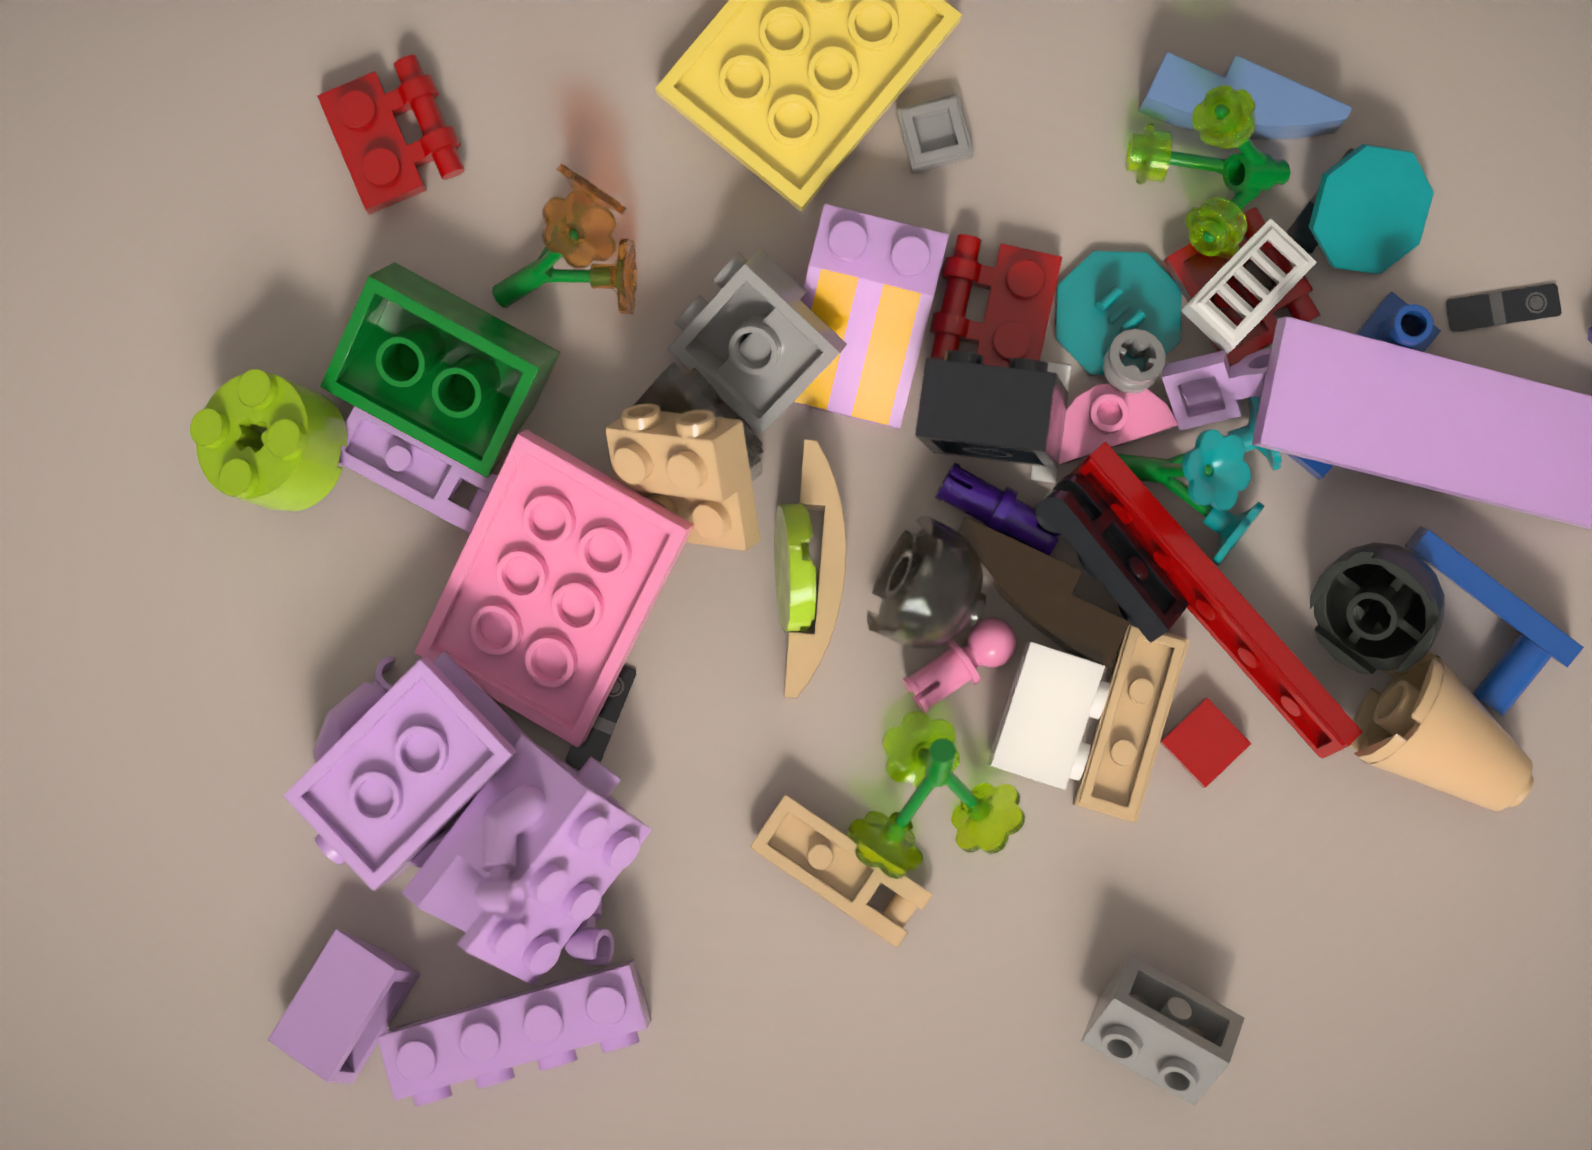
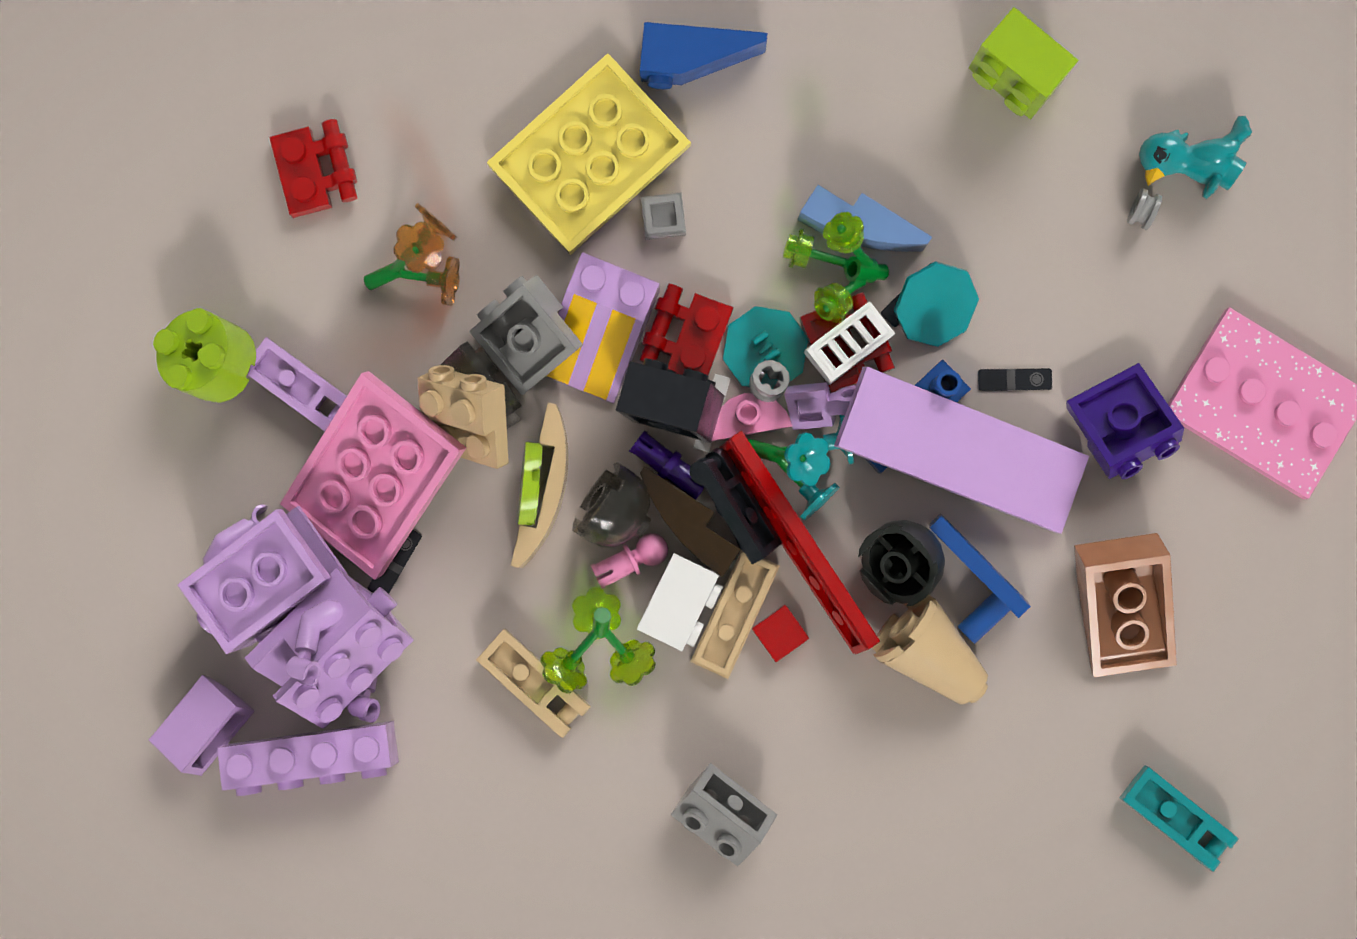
camera: 10 degrees right, 0 degrees up
(438, 368) = (320, 323): green slope -> none

